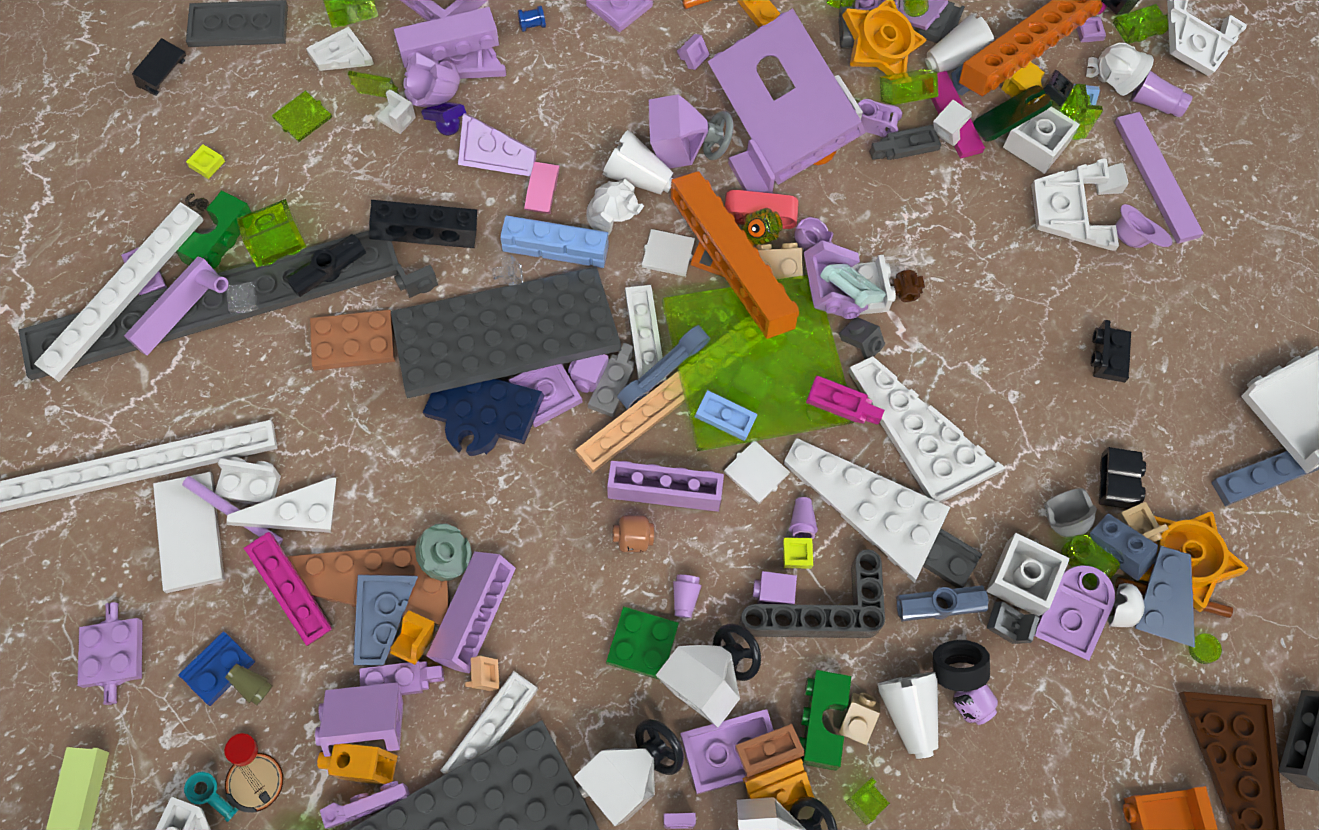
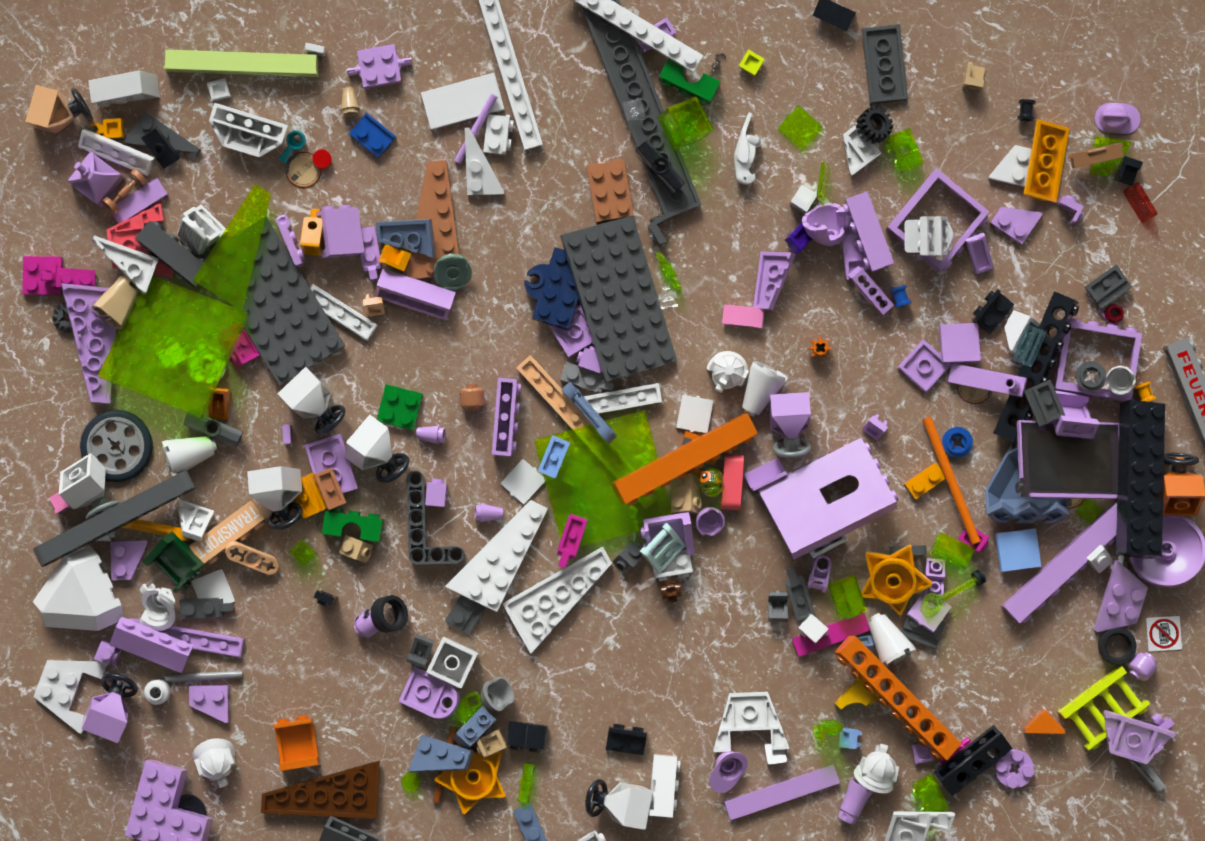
camera: 90 degrees right, 20 degrees up
(57, 750) = (315, 49): none -> white tile
(158, 700) = (349, 103): none -> tan cone
(174, 304) = (643, 77): lavender piece -> none
(248, 683) = (361, 158): olive cone -> none
(288, 588) = (423, 174): dark pink tile -> none
(311, 29) = (880, 118): none -> black tyre
(324, 173) = (745, 154): none -> white animal
(422, 224) = (700, 232): black brick -> none
(472, 270) = (668, 271): none -> clear neon green piece
(521, 44) = (864, 290): none -> lavender piece
(554, 241) = (694, 329): light blue brick -> none
(590, 104) = (814, 347): none -> orange gear
(798, 553) = (464, 509): neon yellow plate -> none
(914, 711) = (360, 582): white cone -> none
(922, 166) = (778, 606): none -> dark grey bracket
(942, 763) = (325, 598): none -> black plate
(959, 602) = (431, 592): sand blue piece -> none
(1012, 113) = (822, 673): dark green piece -> none
(1042, 138) = (807, 699): white brick -> none
(1058, 87) = (854, 716): black plate -> none
(1128, 606) = (433, 731): white hair -> none
(1175, 305) = (664, 785): none -> white wedge
(1204, 487) = (526, 783): none -> clear neon green pin
(1207, 343) = (625, 803): none -> white piece

